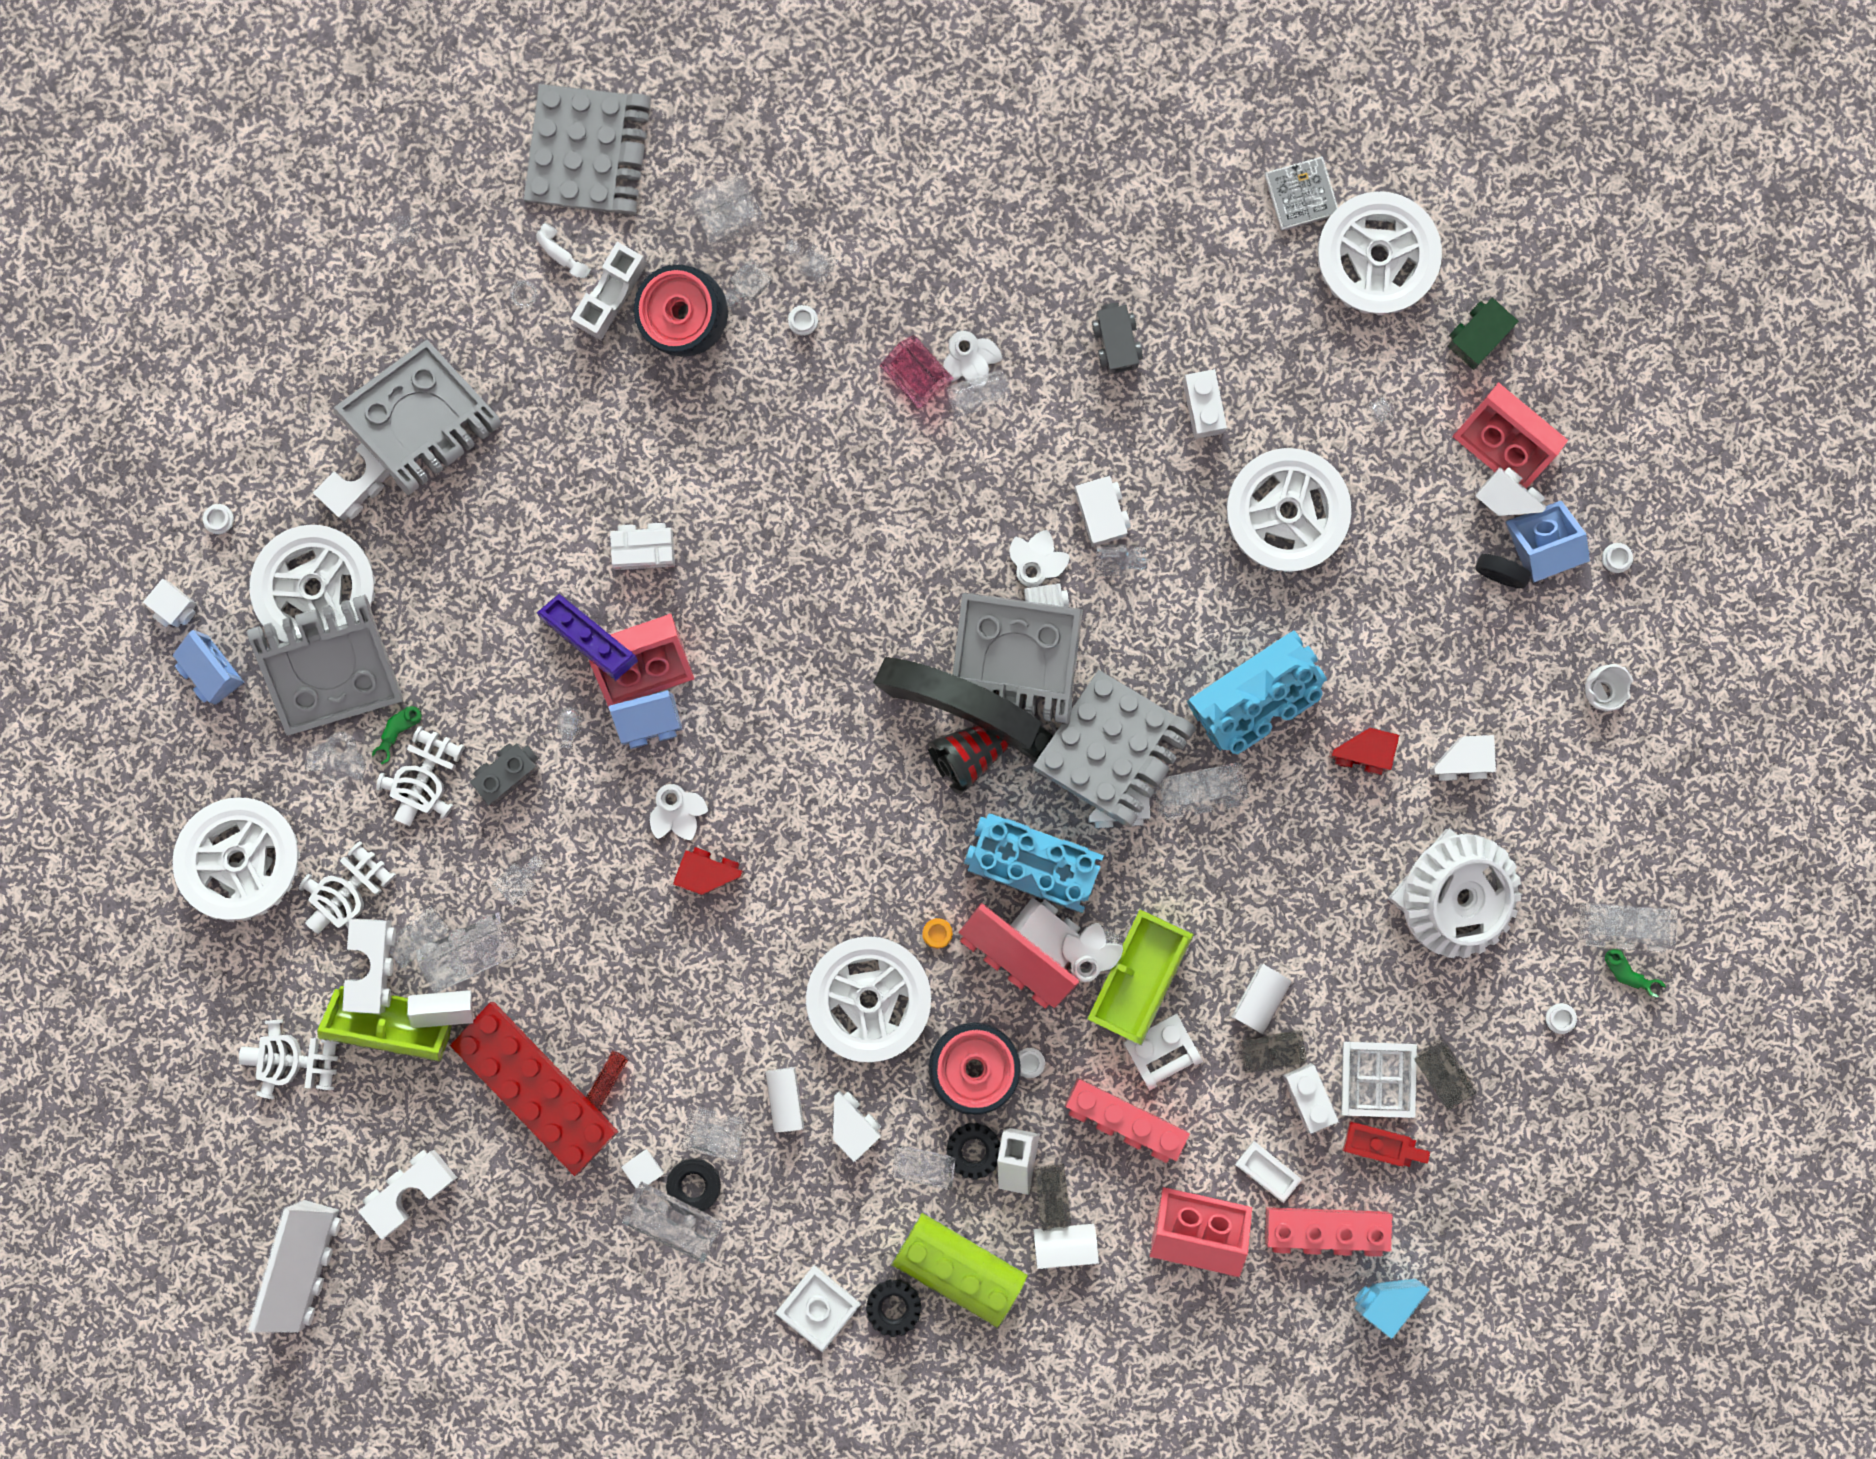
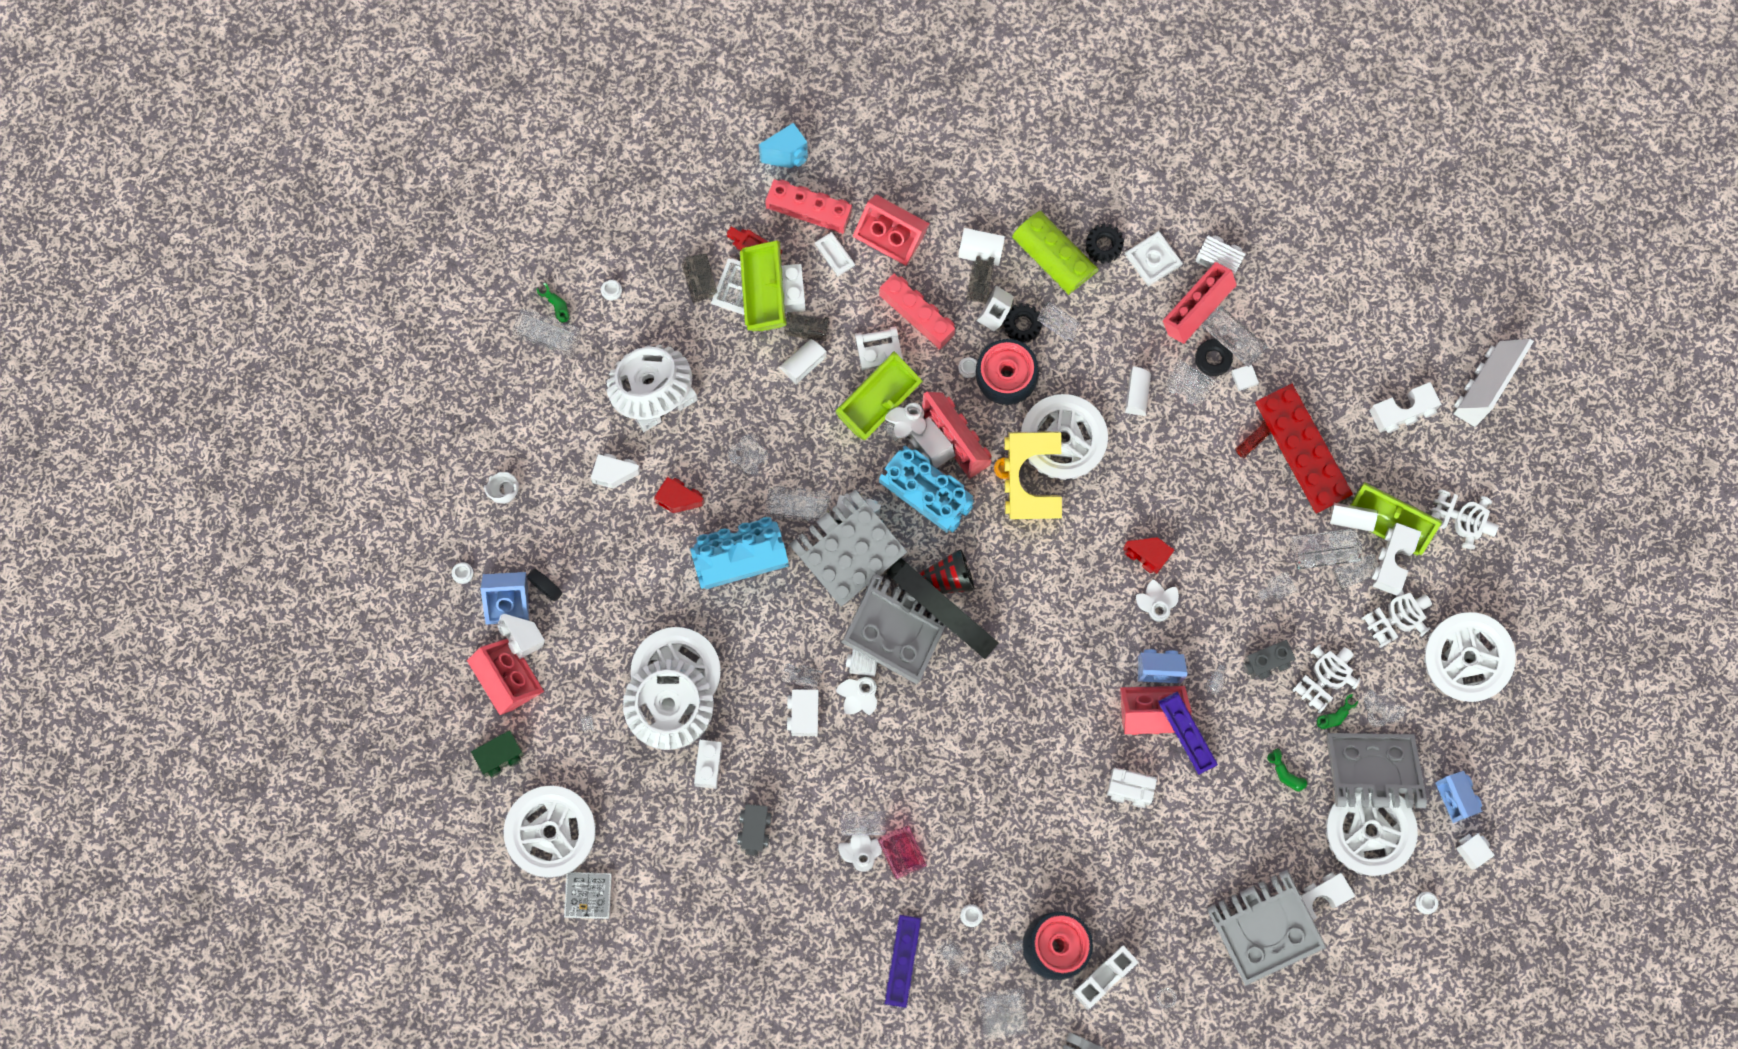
camera: 170 degrees left, 10 degrees down
(442, 625) = (1286, 777): none -> green arm
(560, 255) = (1139, 1033): white arm -> none
(724, 1339) = (1217, 251): none -> white brick
(734, 1257) = (1199, 302): none -> coral brick
(850, 1128) = (1098, 358): white slope -> none
(873, 237) = (902, 961): none -> dark purple tile
(921, 959) = (1021, 447): none -> light yellow arch
(1258, 487) = (667, 731): none -> white gear
(1287, 844) = (751, 454): none -> clear plate
(1353, 1083) = (762, 287): none -> lime container

